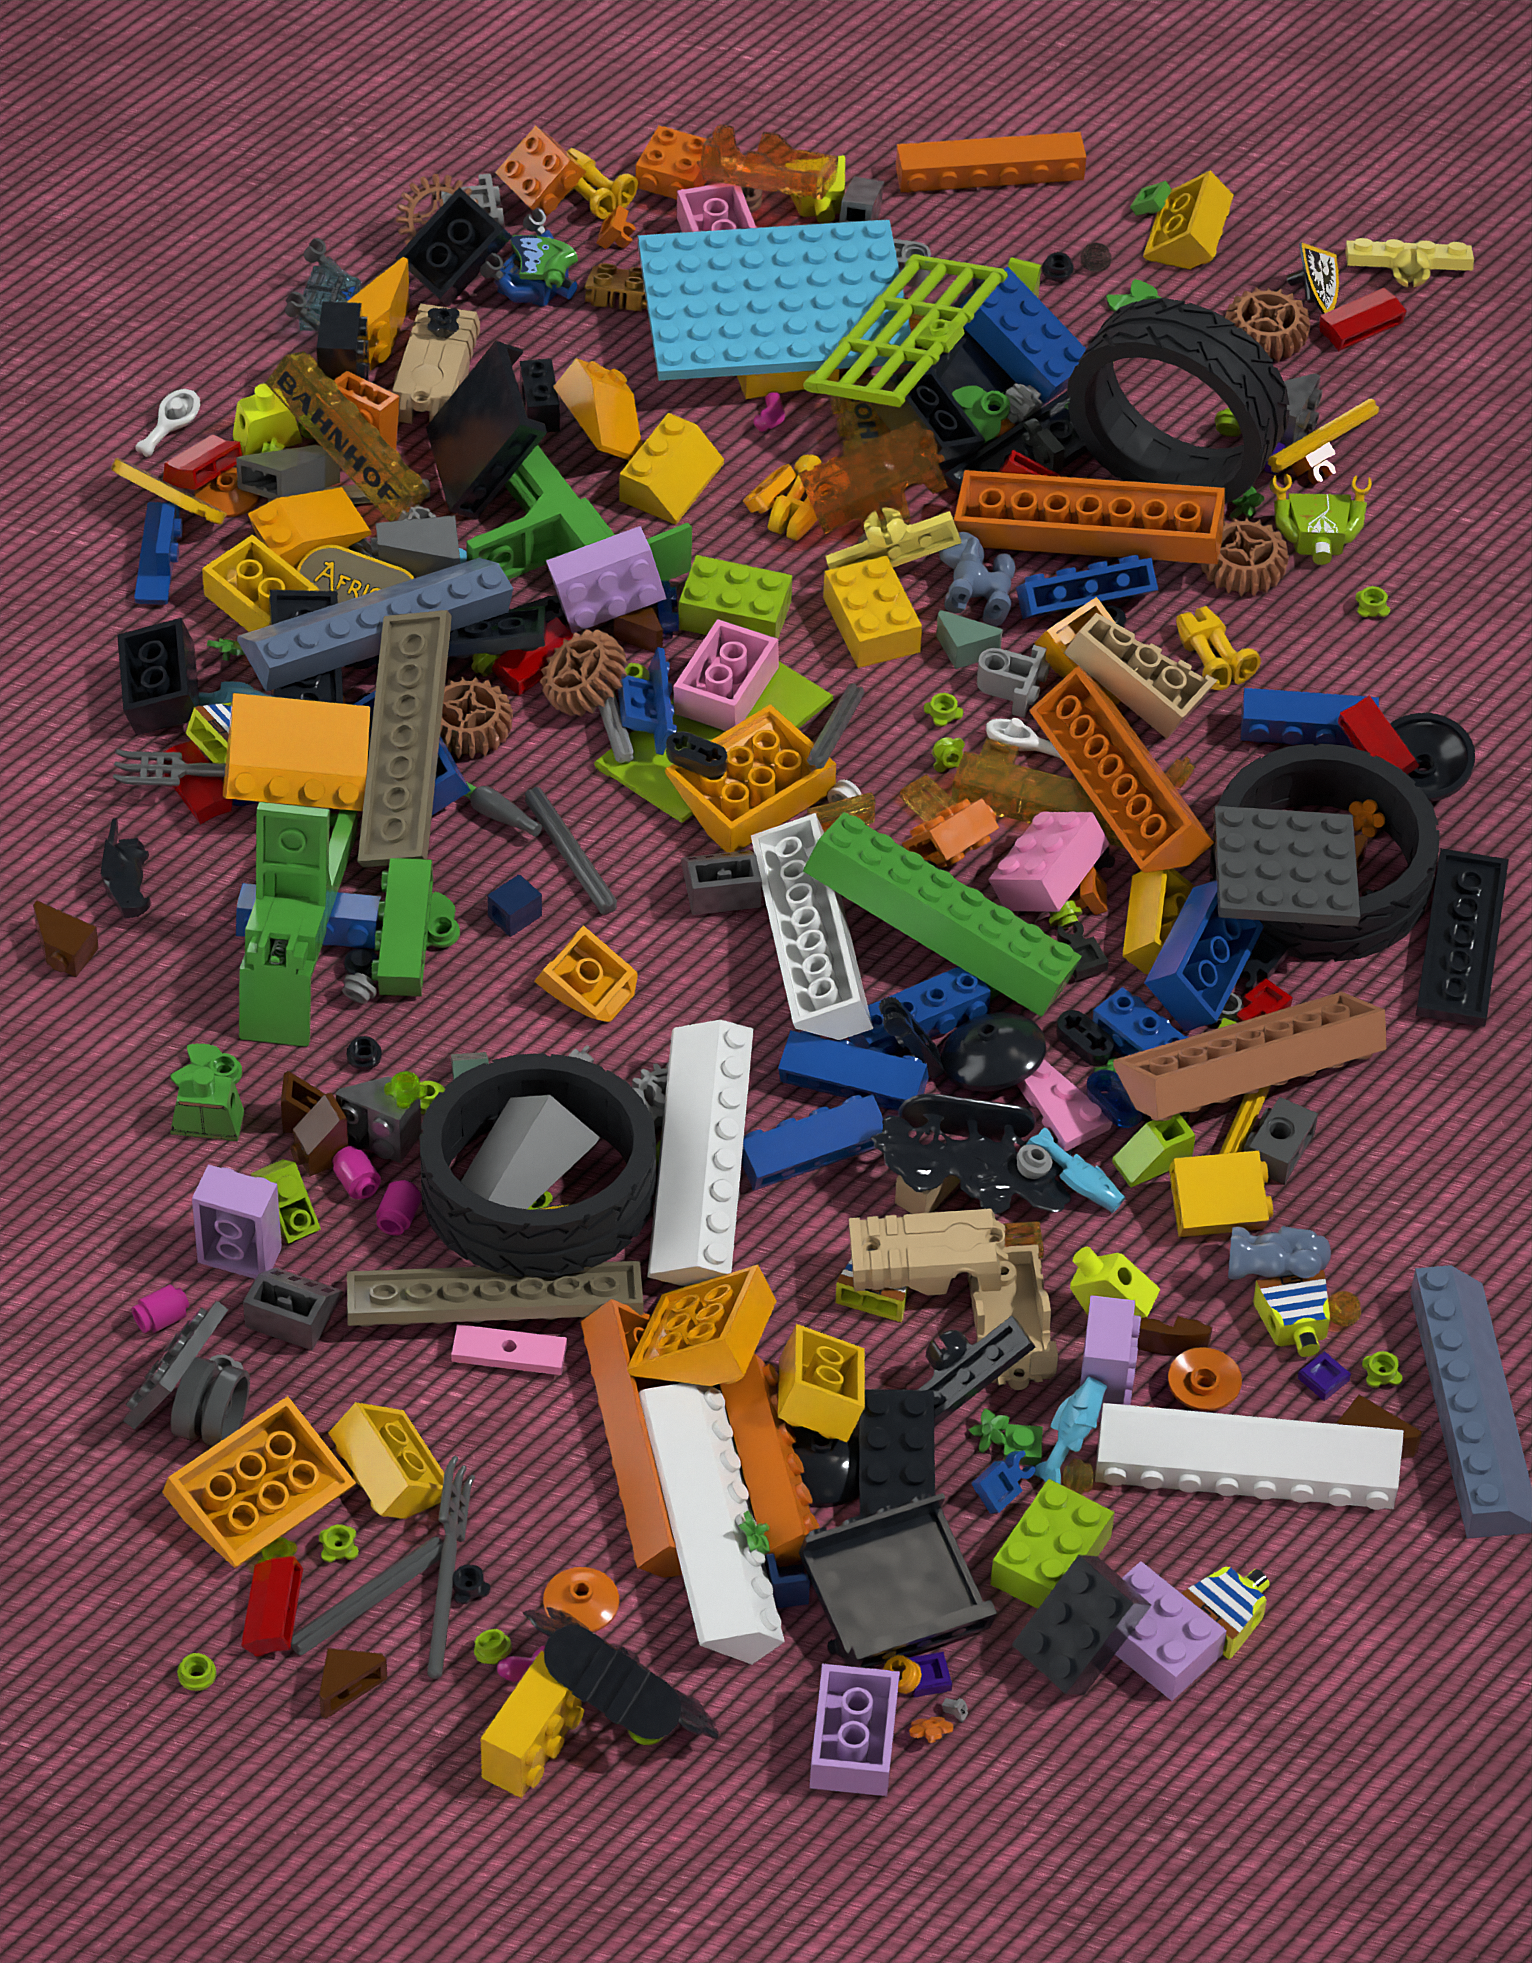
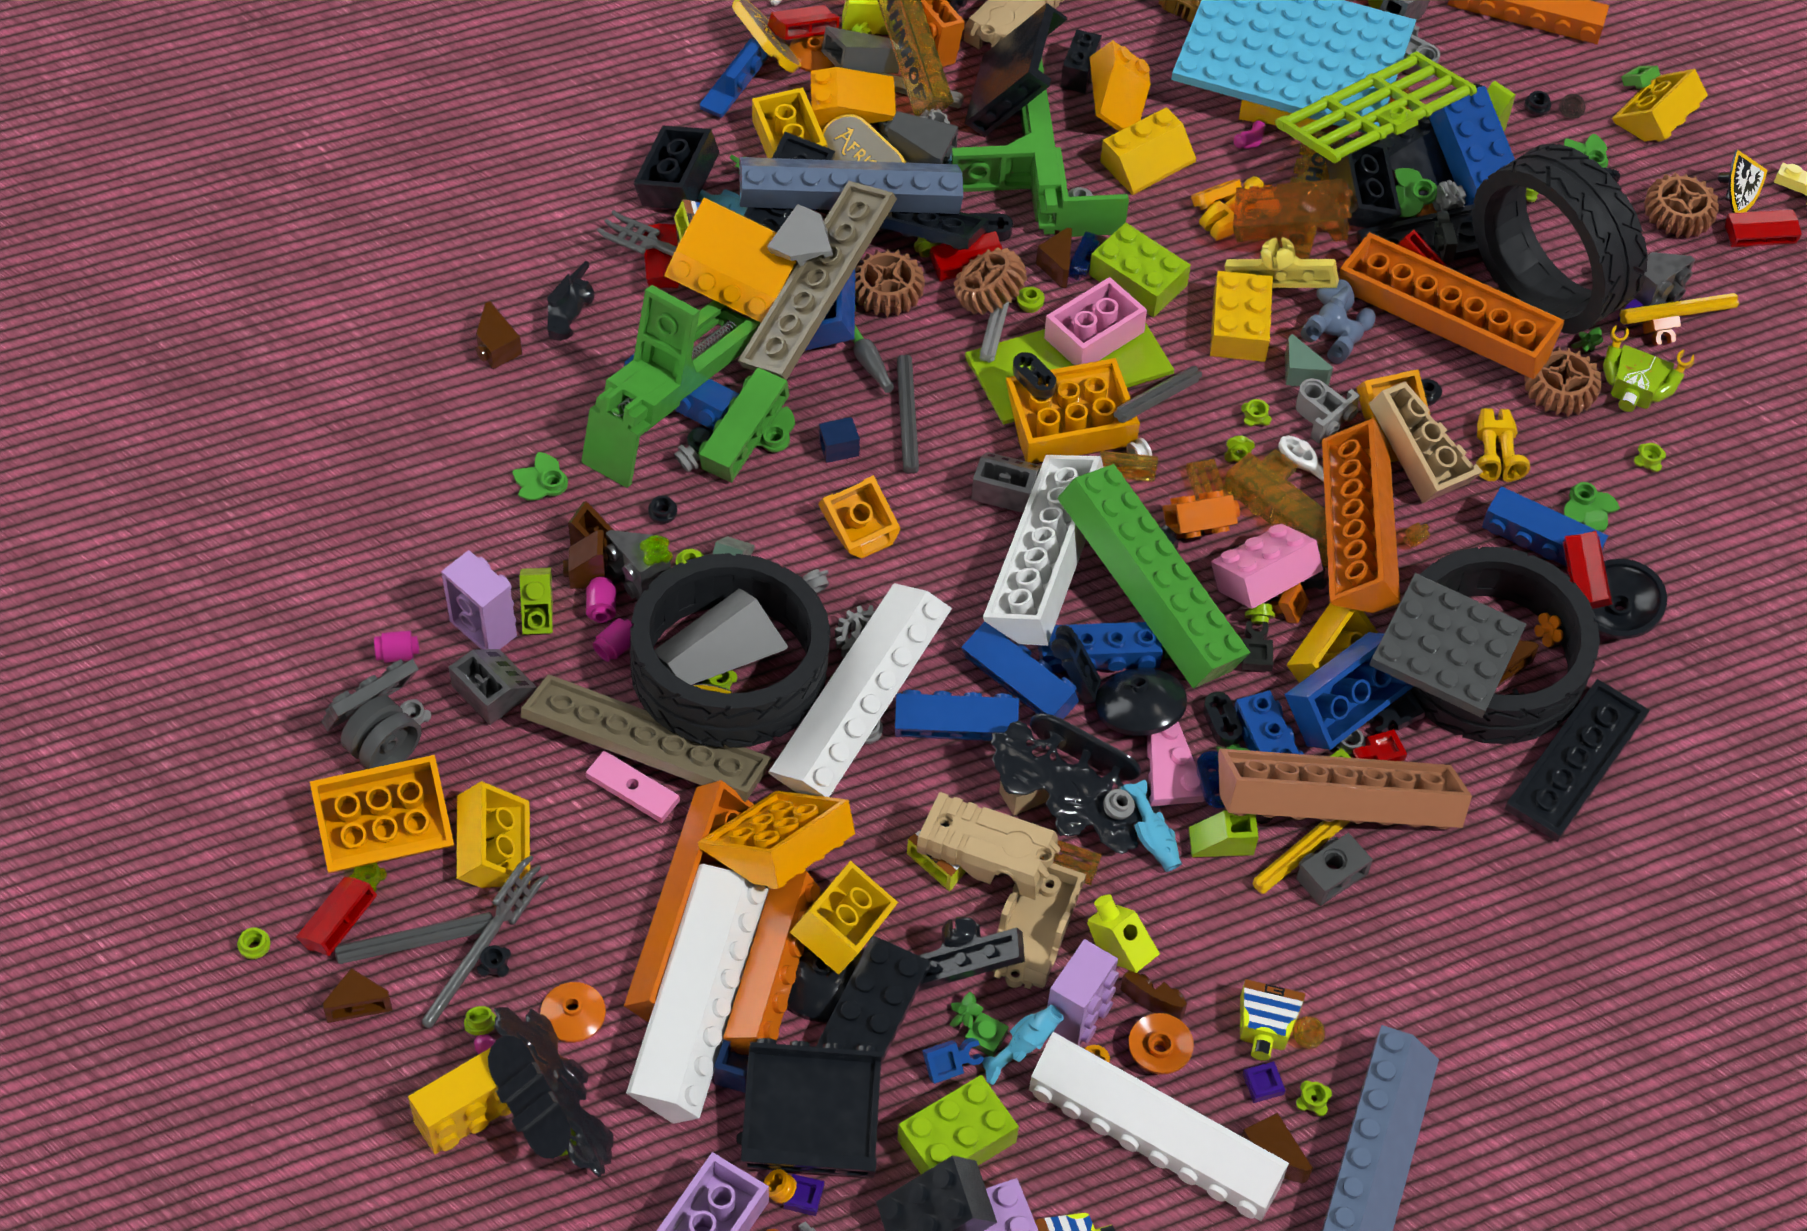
camera: 25 degrees right, 5 degrees up
(207, 1106) = (520, 505): bright green torso -> none
(334, 1535) = (414, 879): lime plate -> none
(366, 696) = (801, 237): none -> light grey slope
(606, 579) = (1040, 215): lavender brick -> none
(647, 703) = (1024, 320): blue bracket -> none
(755, 1534) = (719, 1020): bright green plant -> none
(1074, 589) = (1431, 360): blue brick -> none
(1078, 1476) = (1013, 1082): clear yellow plate -> none
(1220, 1193) = (1257, 893): yellow brick -> none
(1278, 1254) = (1271, 962): sand blue animal -> none
(1339, 674) = (1591, 509): none -> bright green plate

